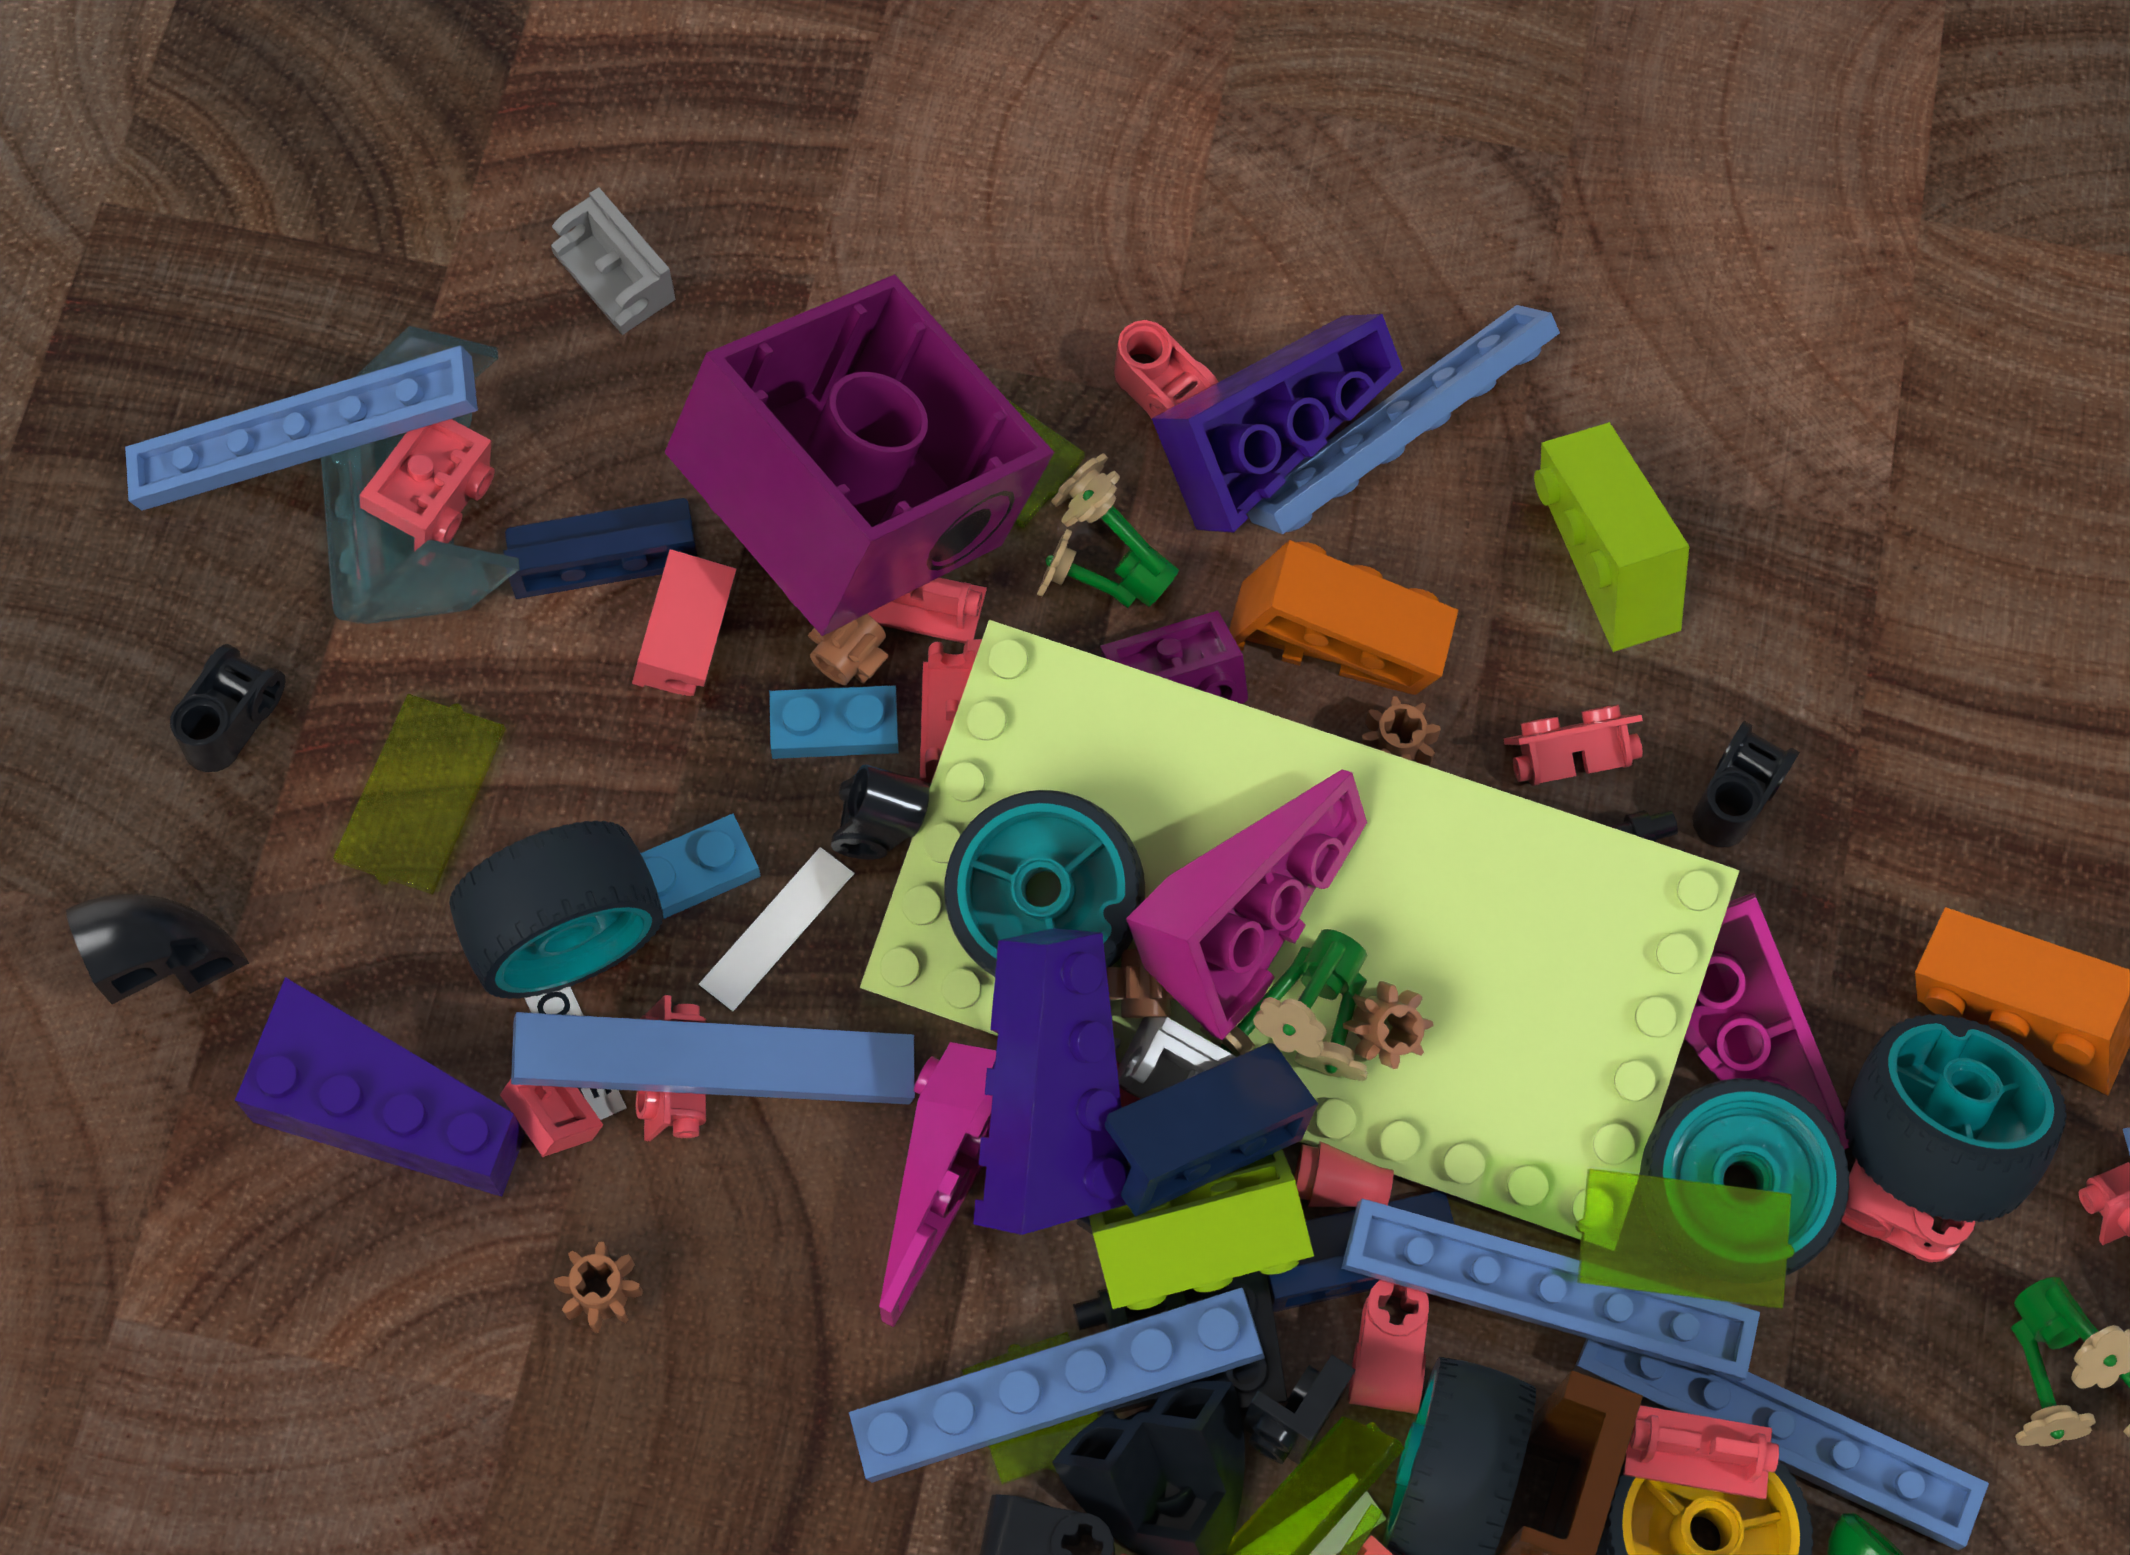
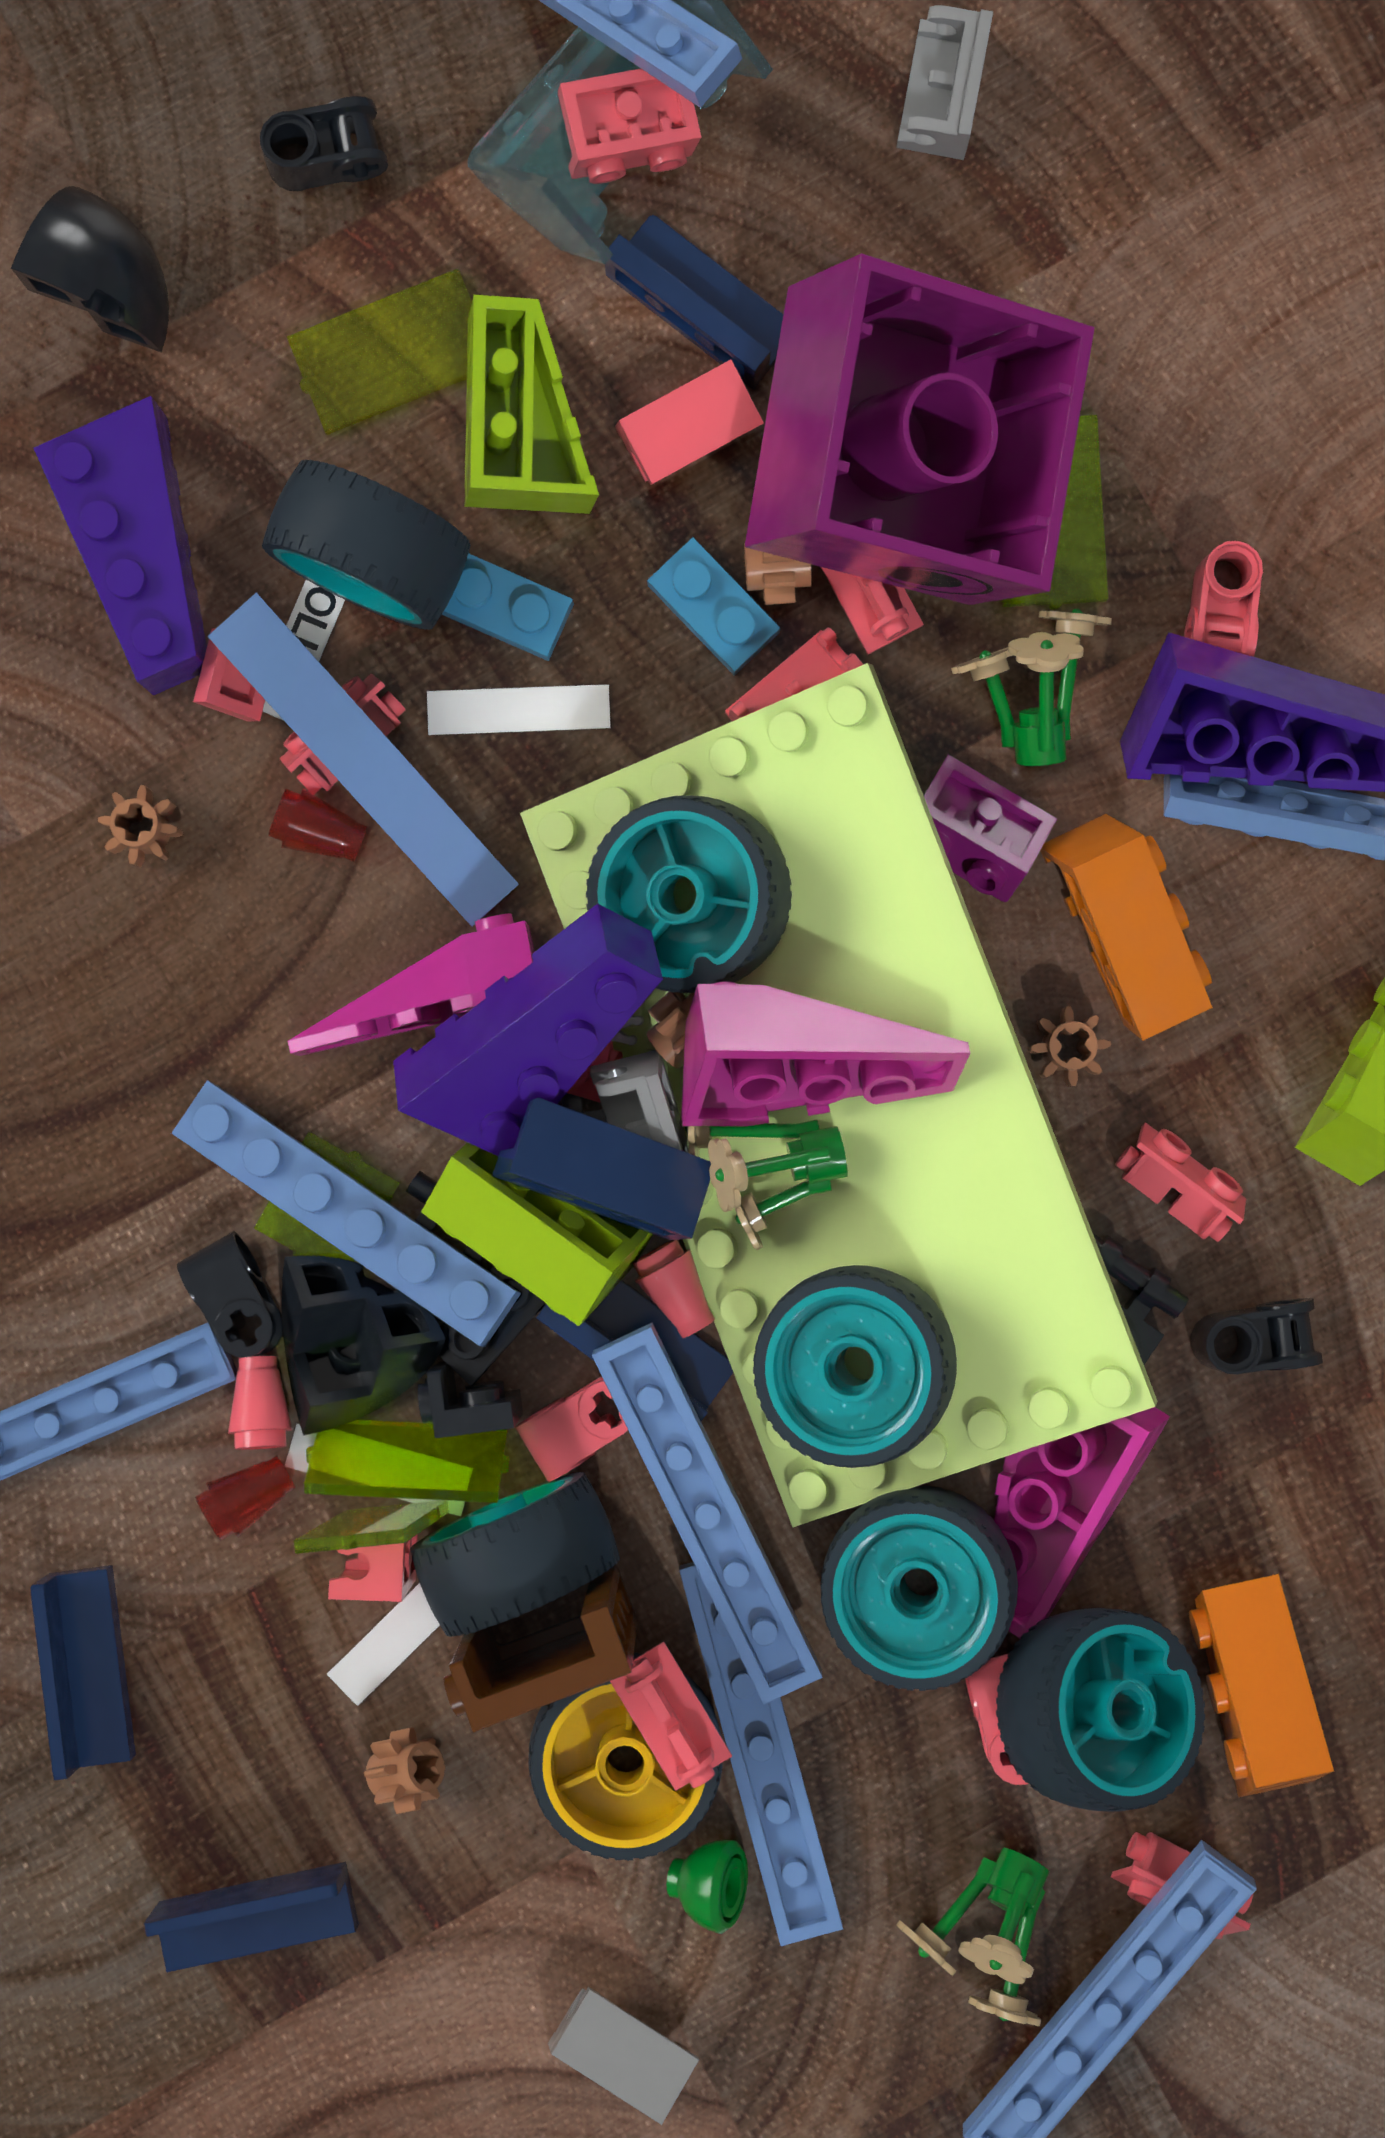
camera: 55 degrees right, 20 degrees up
(561, 734) = (518, 422): none -> lime wedge
(725, 1151) = (315, 826): none -> clear red cone
(879, 812) = (660, 710): black piece -> none
(1374, 1034) = (806, 1235): nougat gear -> none
(1533, 1013) = (816, 1398): none -> teal wheel
(1684, 1238) = (824, 1584): clear neon green piece -> none

